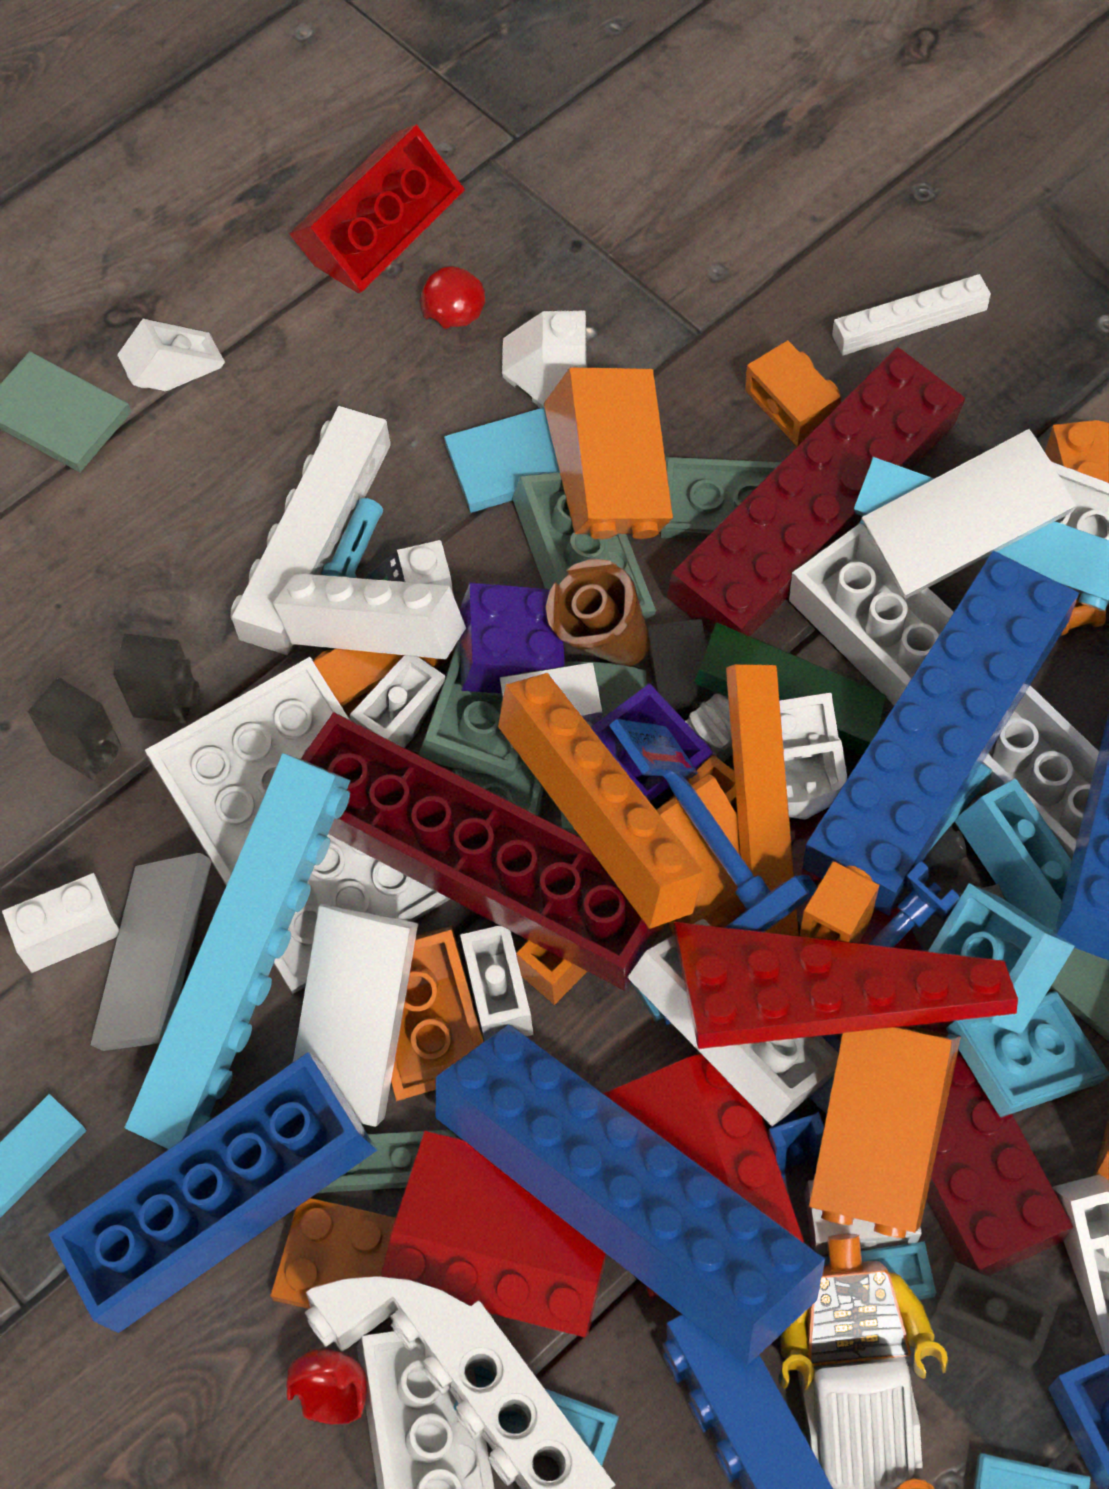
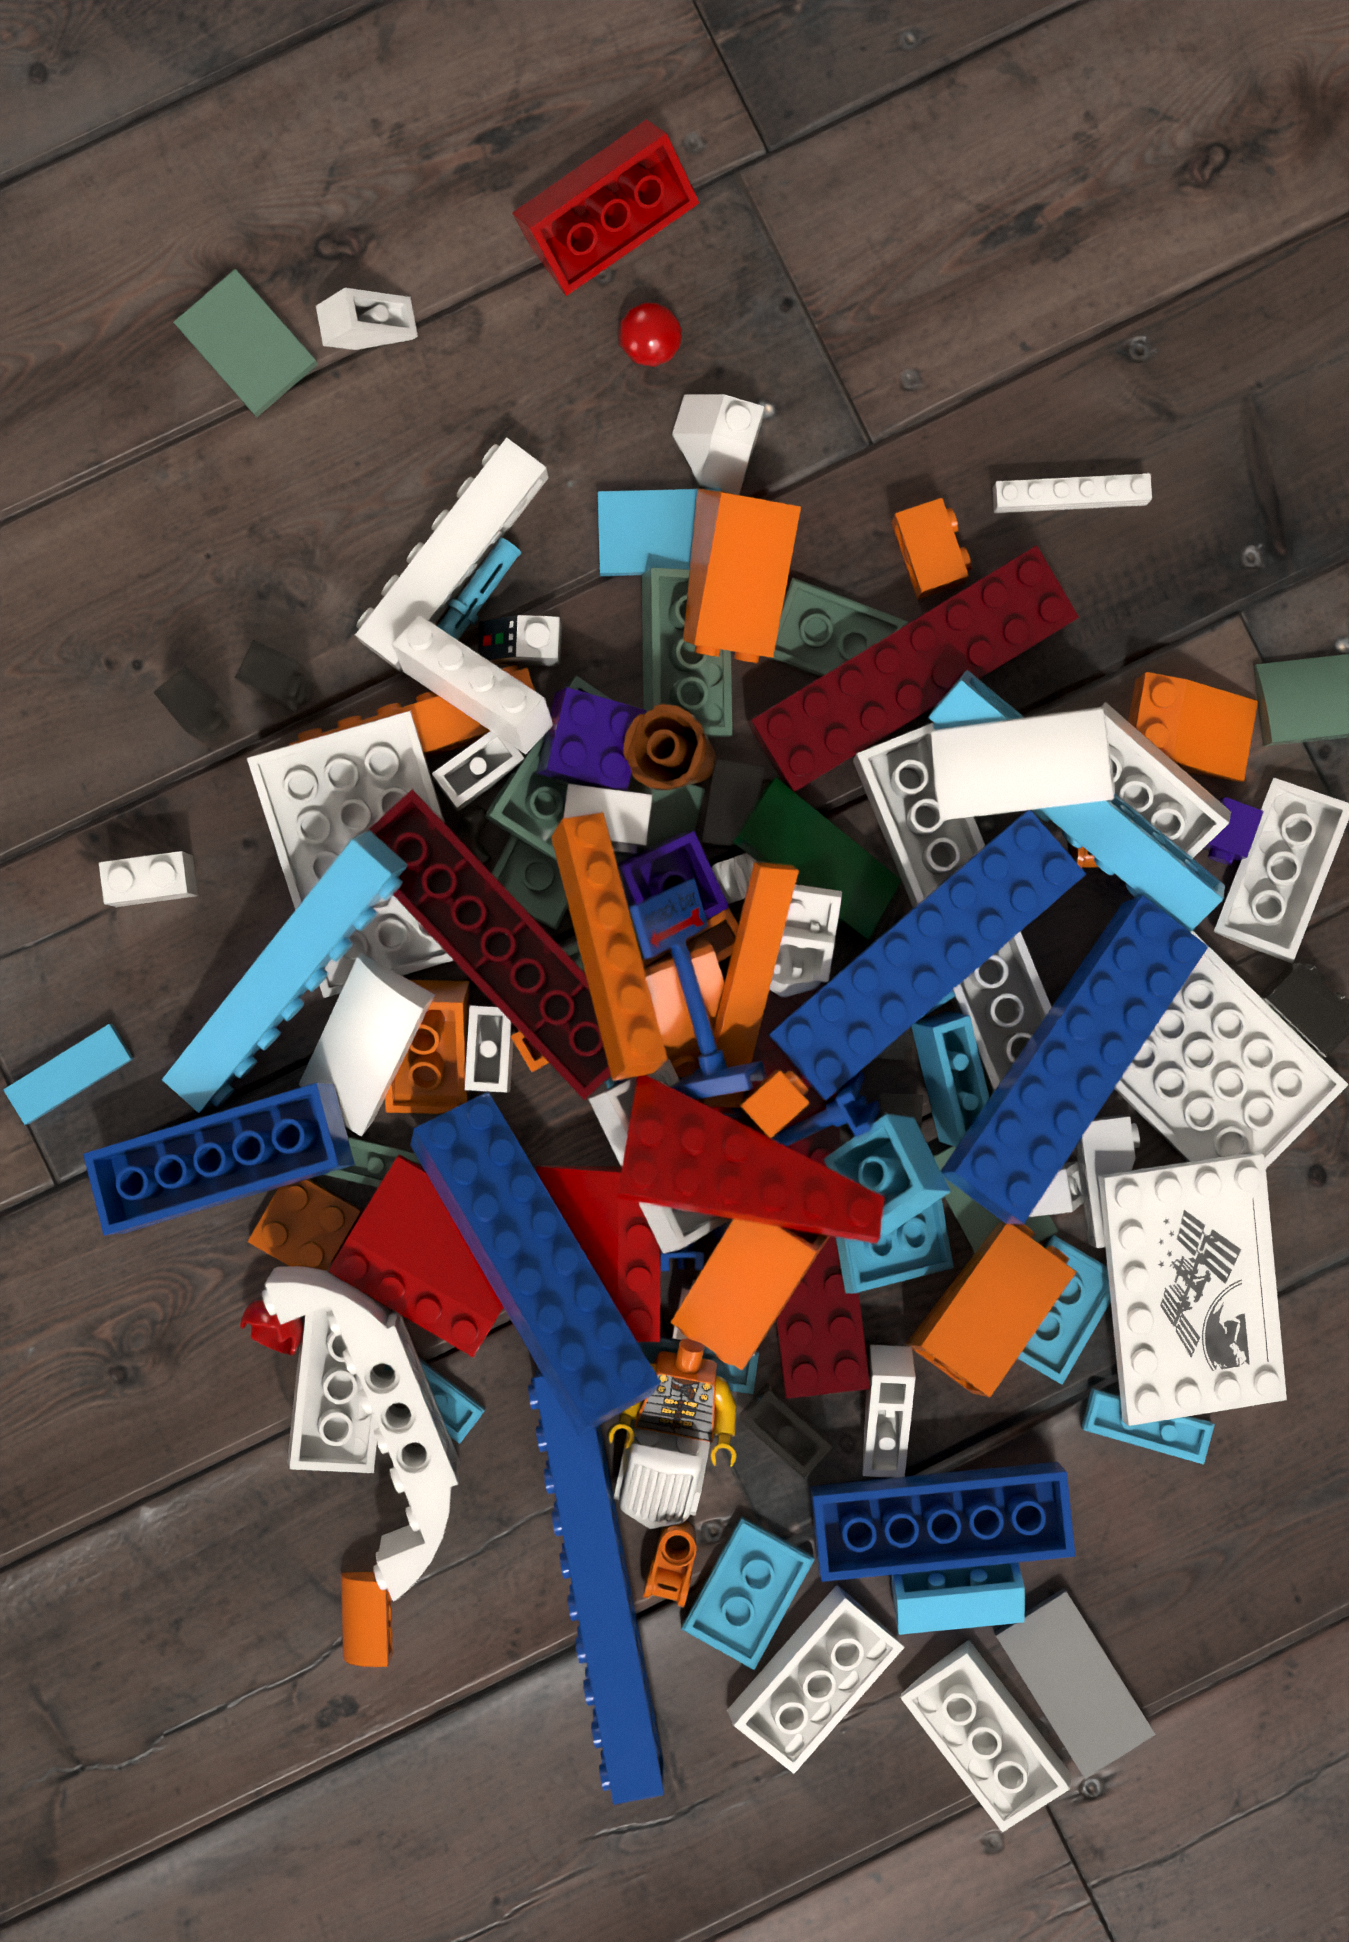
camera: 10 degrees right, 25 degrees up
(151, 952) = (216, 930): light grey tile -> none

